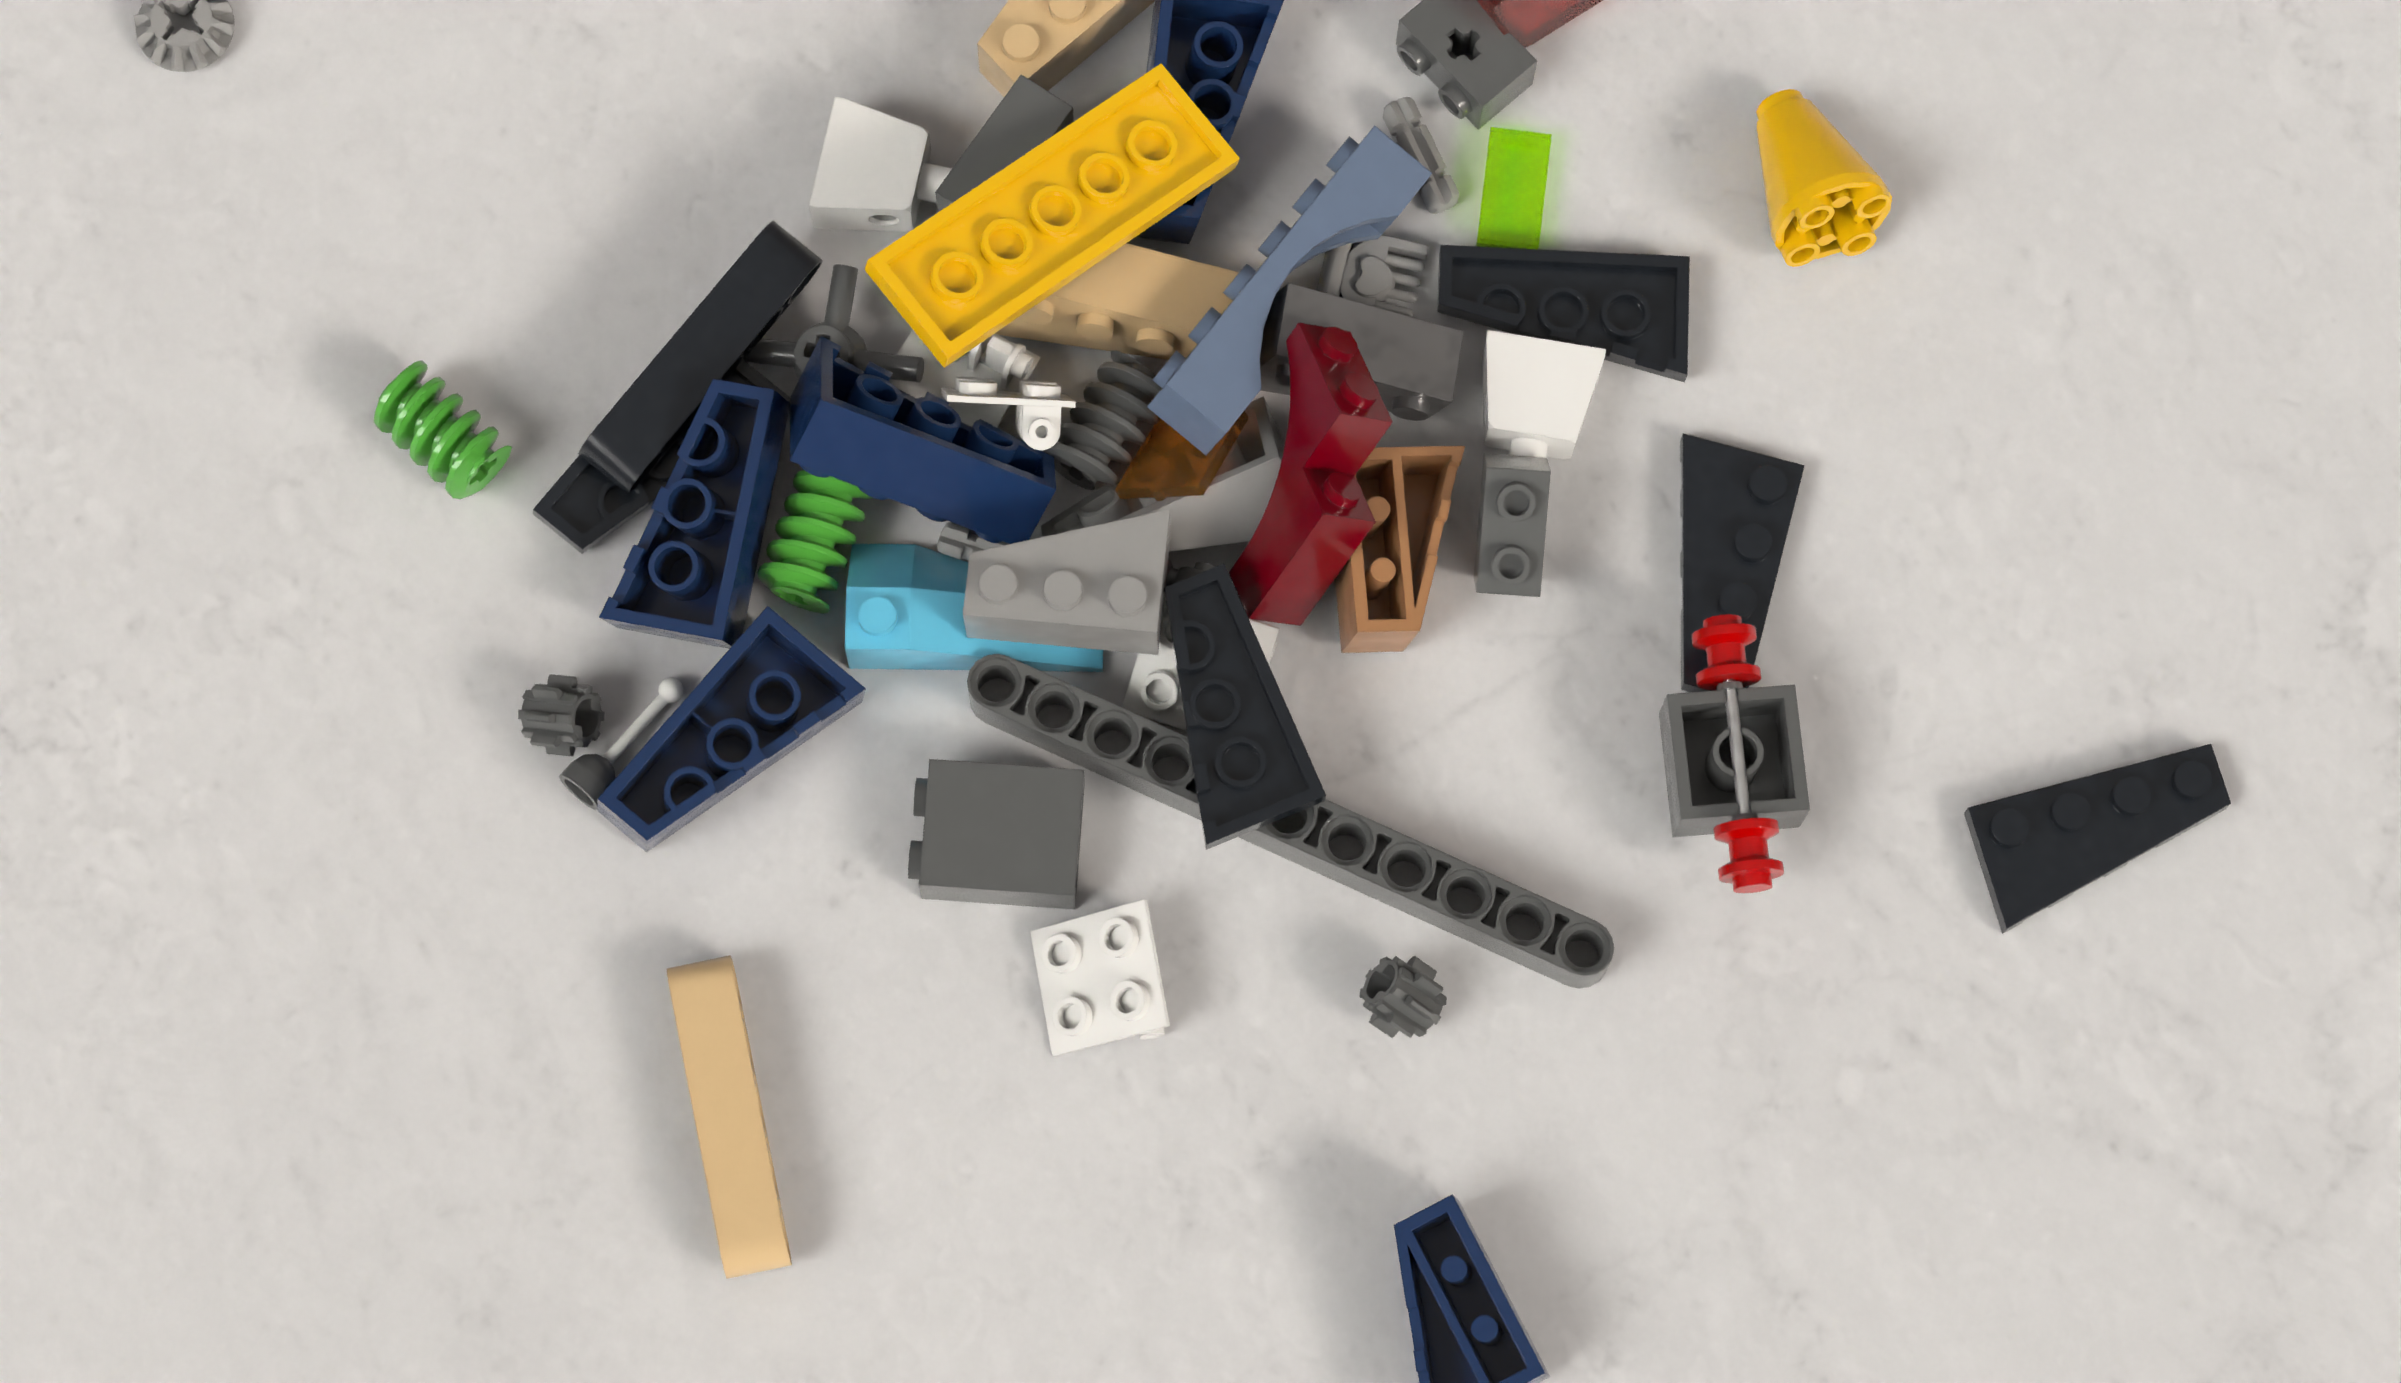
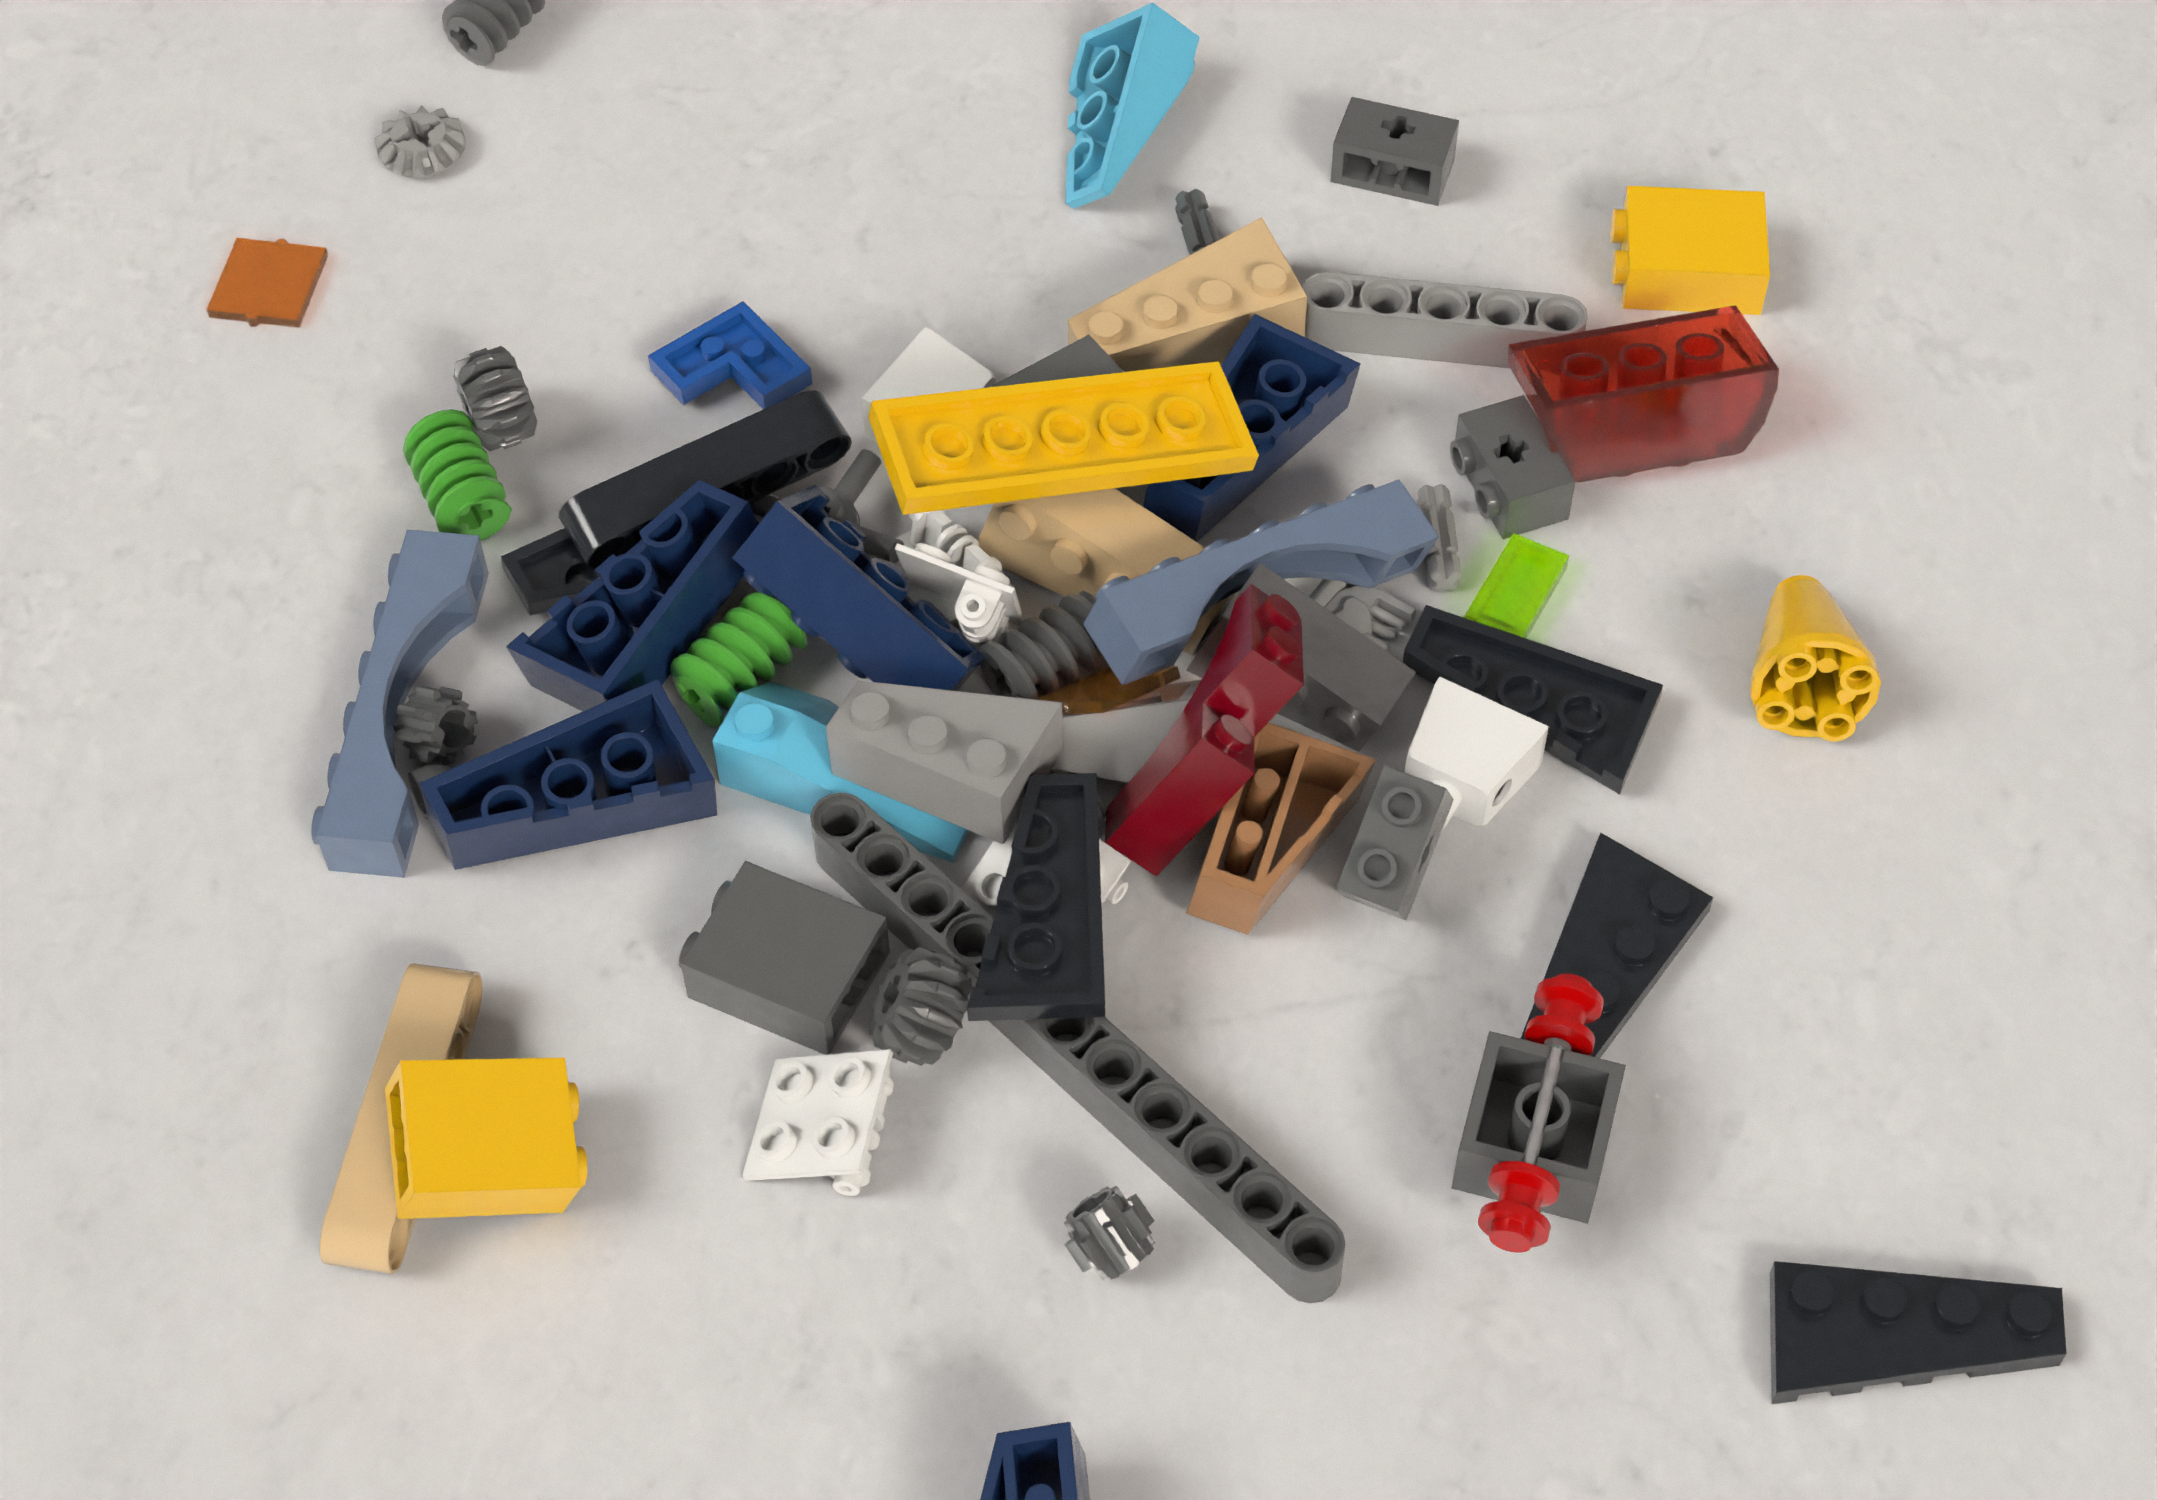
camera: 25 degrees right, 20 degrees down
(111, 255) = (267, 282): none -> clear orange piece
(438, 330) = (495, 398): none -> dark grey gear
(484, 575) = (430, 600): none -> sand blue arch
(641, 174) = (736, 347): none -> blue plate
(824, 1119) = (483, 1137): none -> yellow brick
(1151, 845) = (920, 1006): none -> dark grey gear

